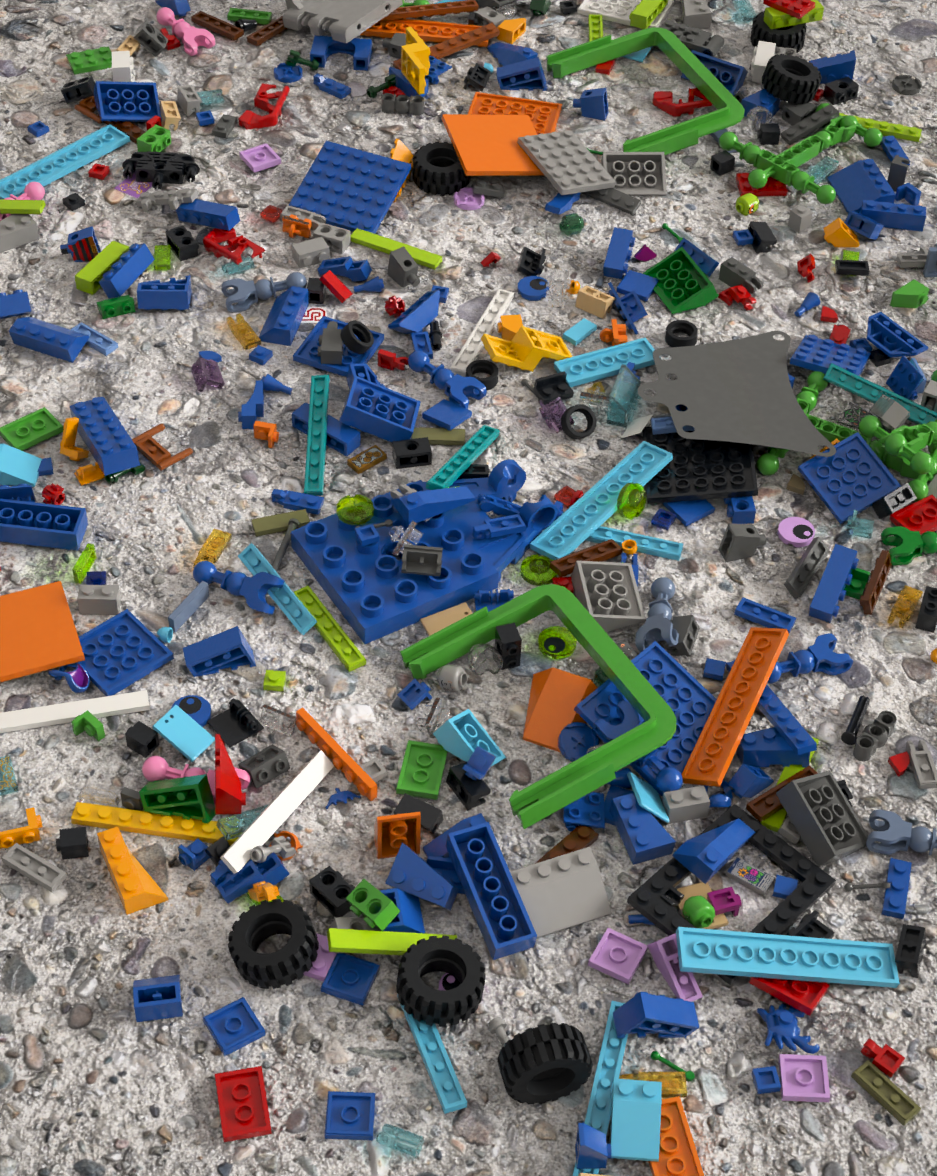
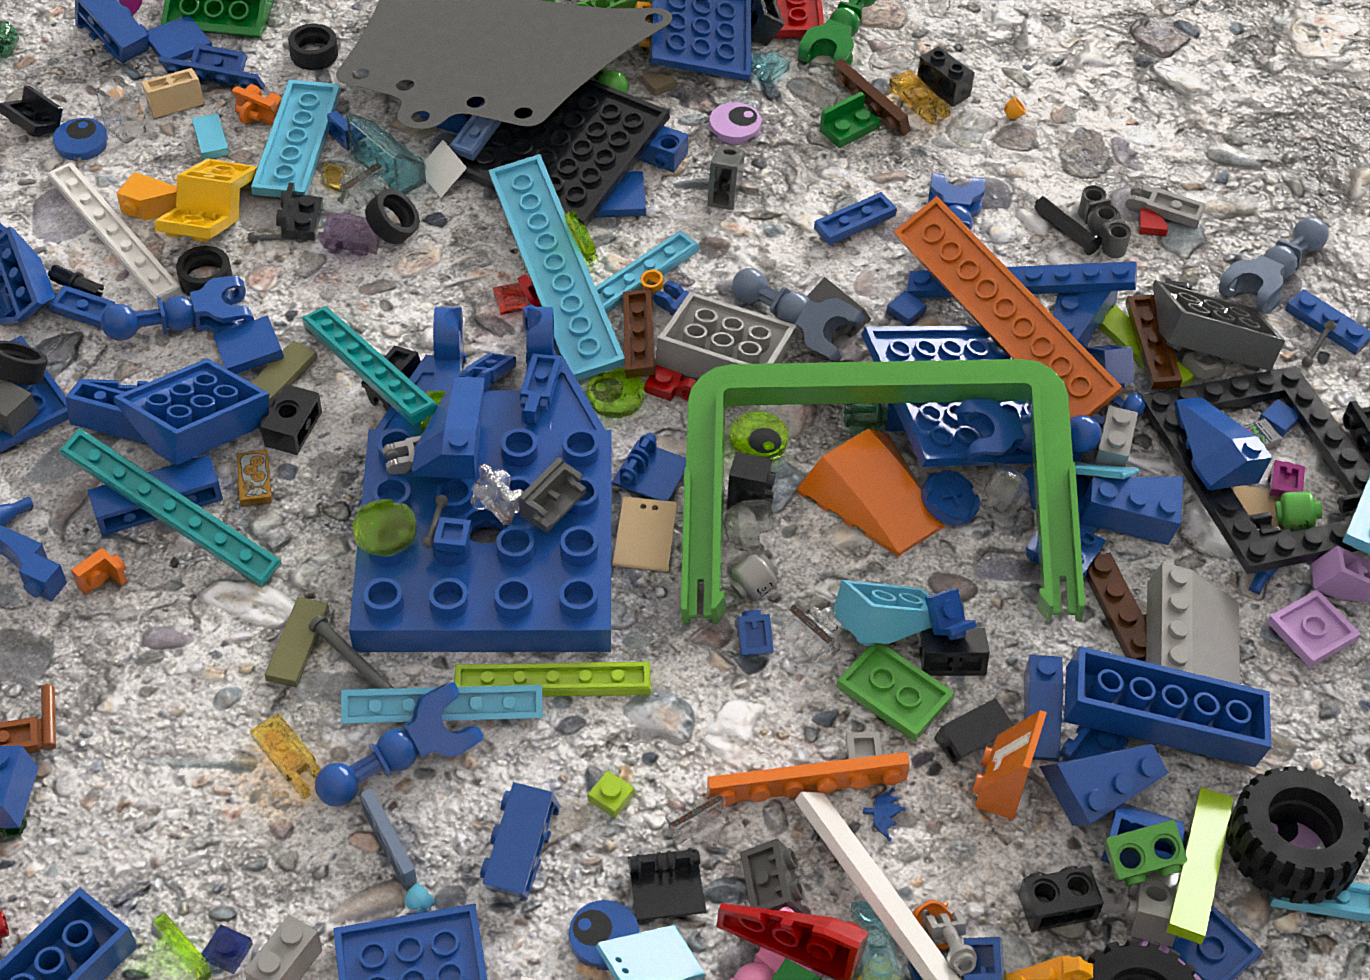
camera: 60 degrees left, 5 degrees up
(298, 501) = (271, 599): blue hinge -> none
(389, 361) = (80, 354): red plate -> none
(663, 519) = (625, 226): clear blue plate -> none
(806, 567) = (800, 138): dark grey plate -> none
(833, 582) = (858, 129): blue brick -> none

